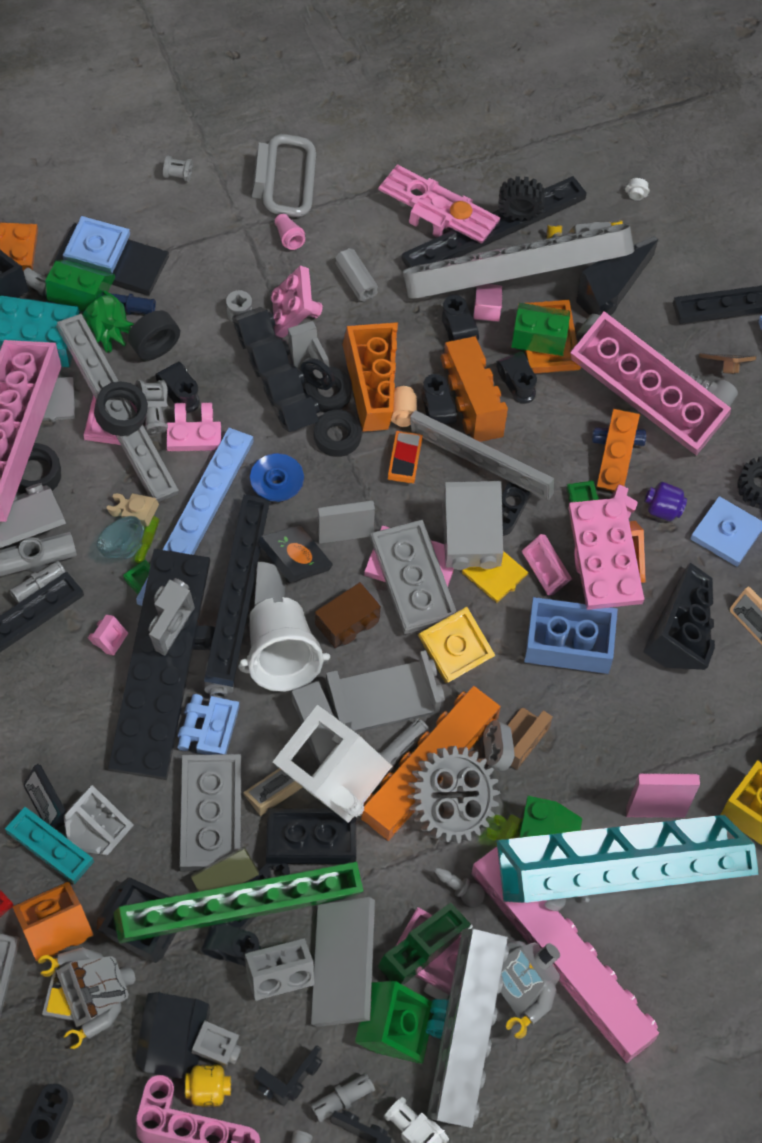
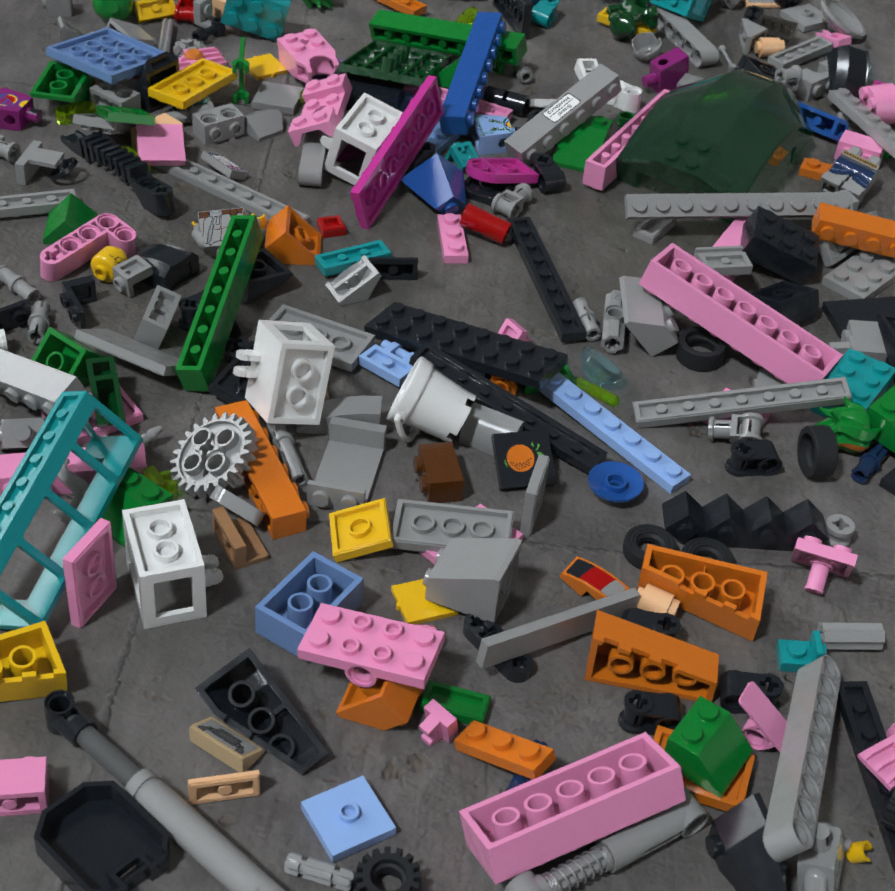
camera: 115 degrees right, 20 degrees down
(122, 390) = (732, 374): black tyre -> none
(138, 506) = (629, 389): tan plate -> none
(173, 607) = (487, 324): light grey plate -> none
(193, 435) = (695, 453): bright pink plate -> none
(228, 871) = (251, 320): olive tile -> none
(309, 355) = (742, 547): light grey piece -> none
(393, 302) = (797, 653): none -> teal bracket
(607, 751) = (163, 549): none -> white piece
(665, 501) = (417, 768): dark purple head -> none
(725, 636) = (225, 744): none -> tan slope

